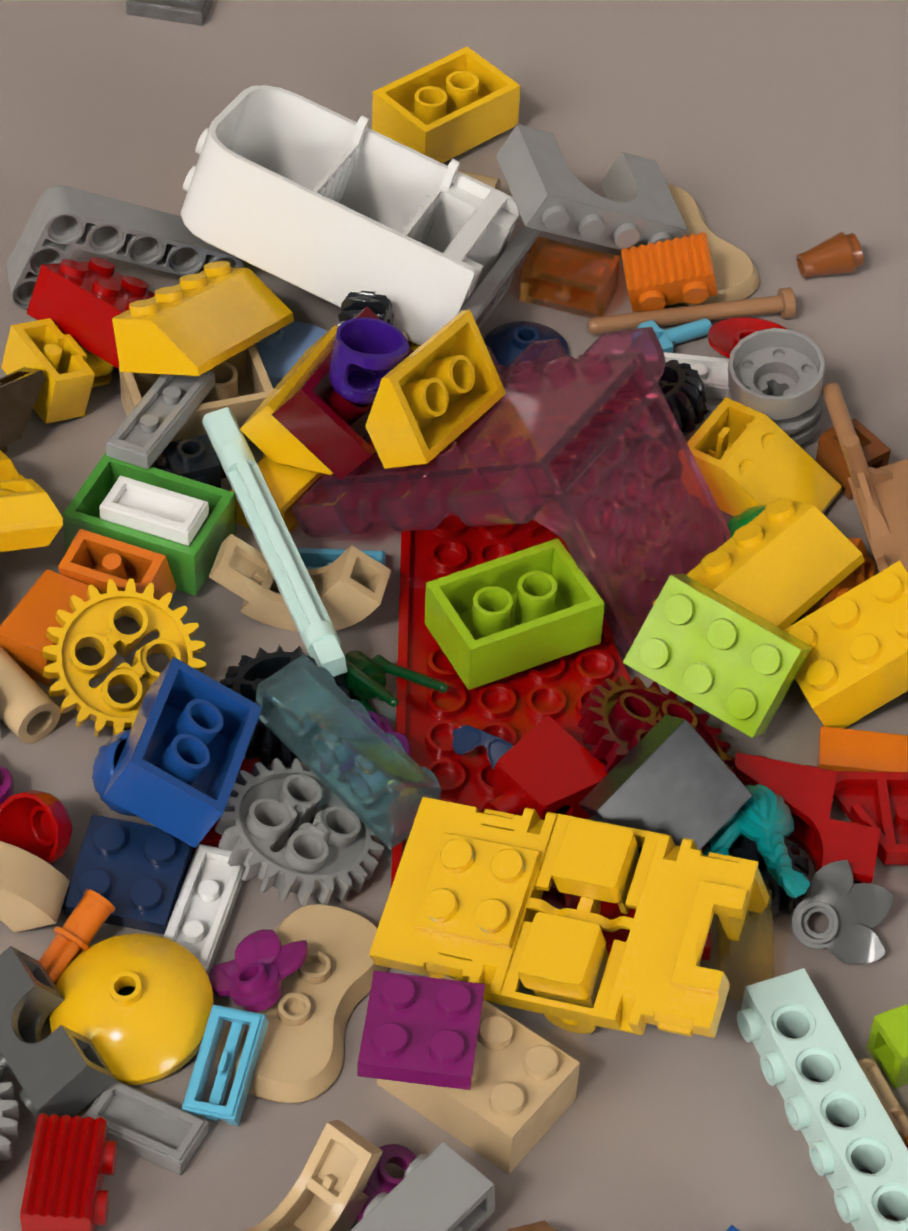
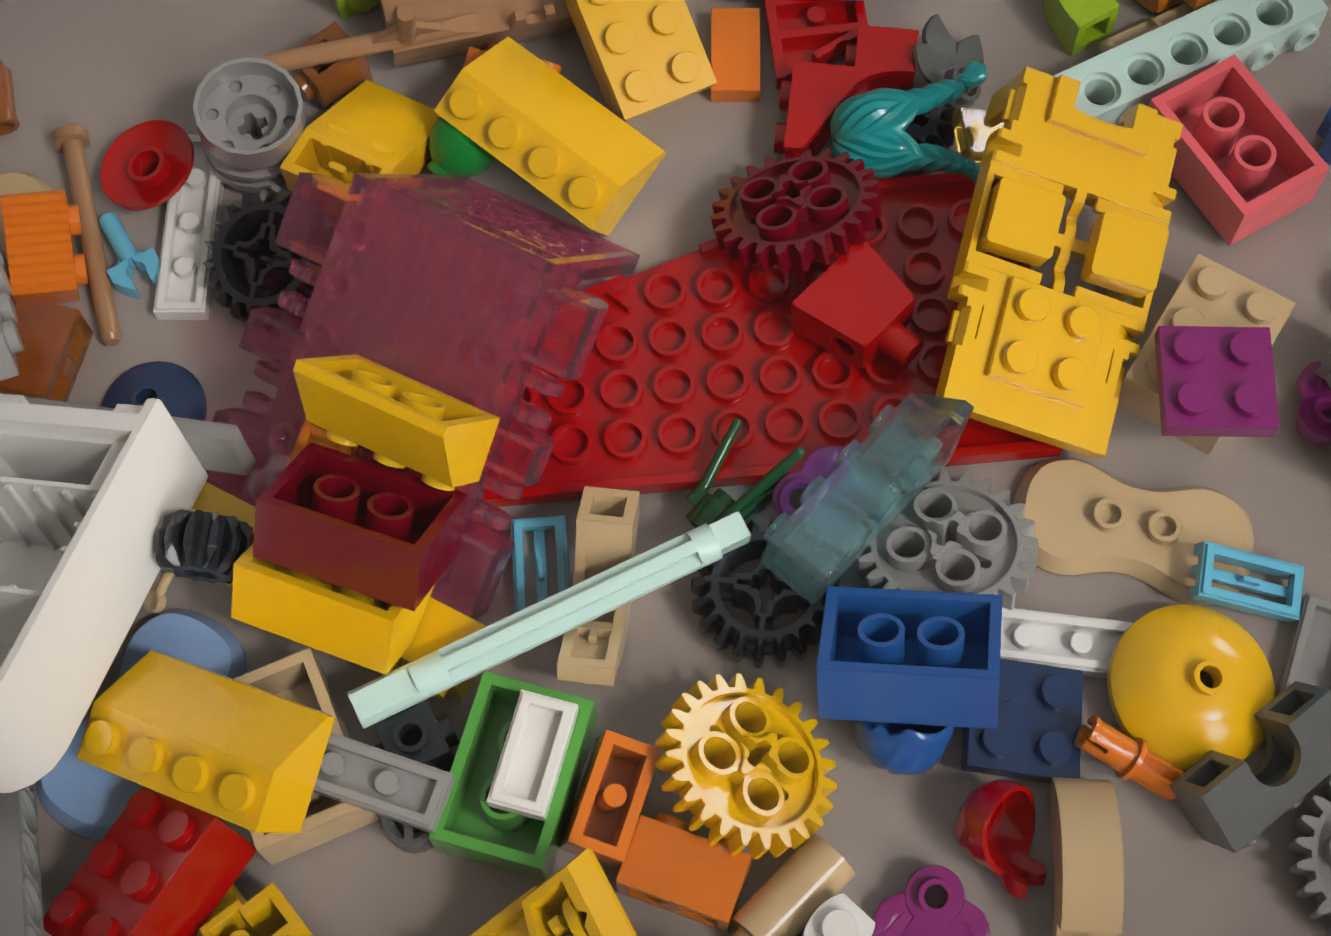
camera: 90 degrees left, 20 degrees up
(258, 970) = (1120, 567): magenta plate -> none
(363, 355) = (382, 481): dark purple helmet -> none
(469, 739) = (804, 391): dark blue piece -> none
(513, 613) = (651, 357): lime brick -> none
(669, 786) = (907, 181): brick -> none
(715, 1136) = (1238, 151): none -> coral brick
(717, 654) = (677, 156): lime brick -> none

